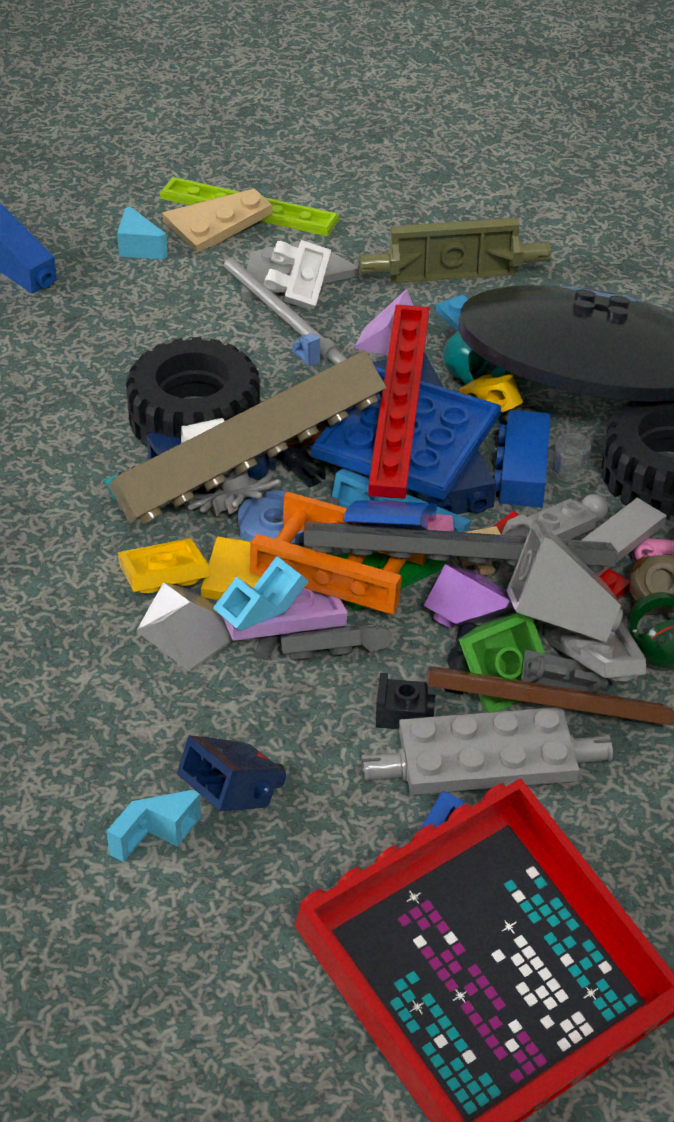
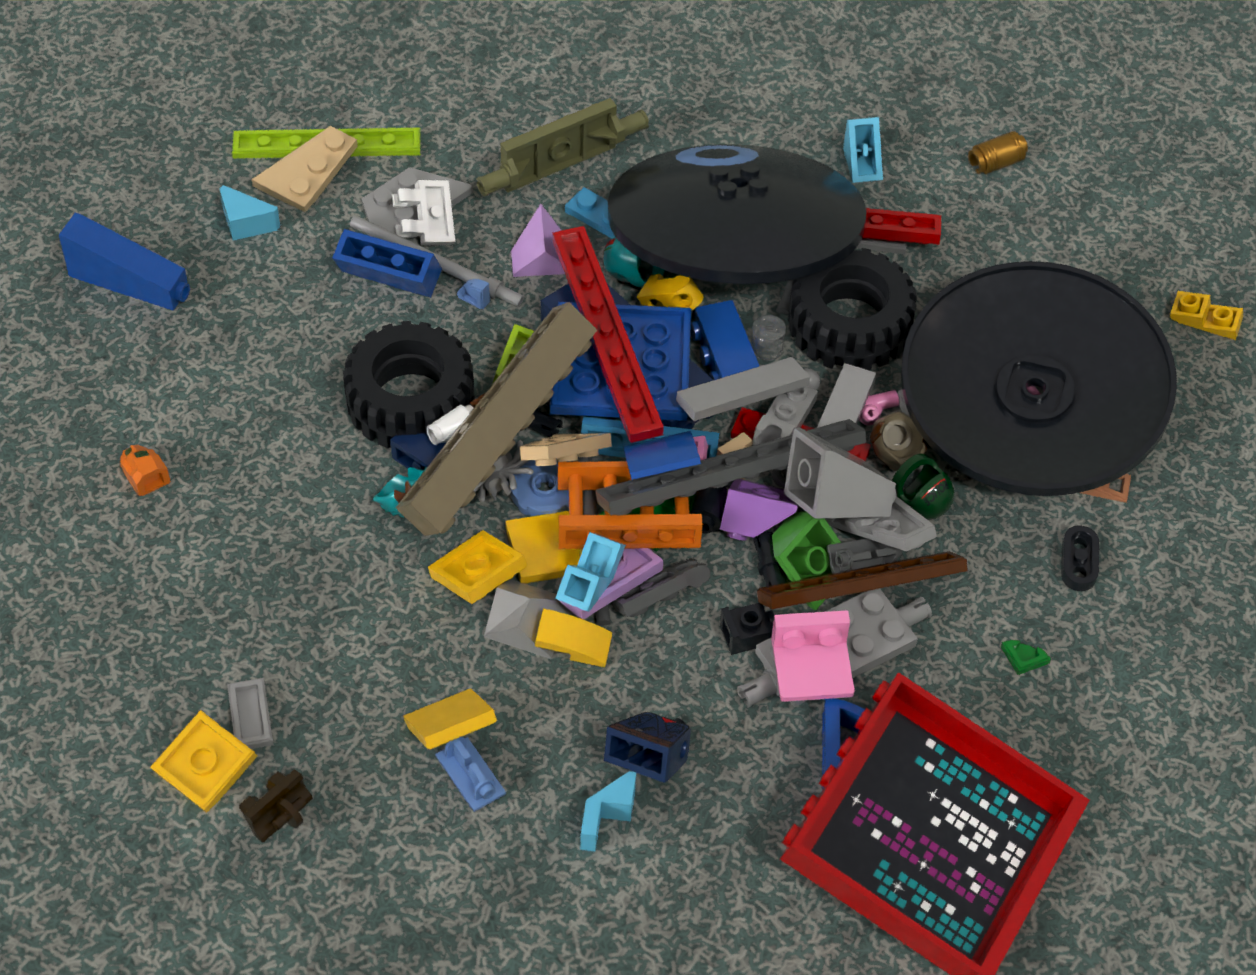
camera: 25 degrees left, 10 degrees up
(43, 742) = (470, 773): none -> medium blue hinge
(47, 685) = (450, 718): none -> yellow tile
(219, 653) = (574, 636): none -> yellow slope
(238, 301) = (387, 263): none -> blue brick
(300, 481) = (565, 447): none -> tan wing
(419, 584) = (711, 504): none -> black brick
(445, 739) = (812, 655): none -> bright pink bracket
(513, 485) = (742, 388): none -> light grey tile

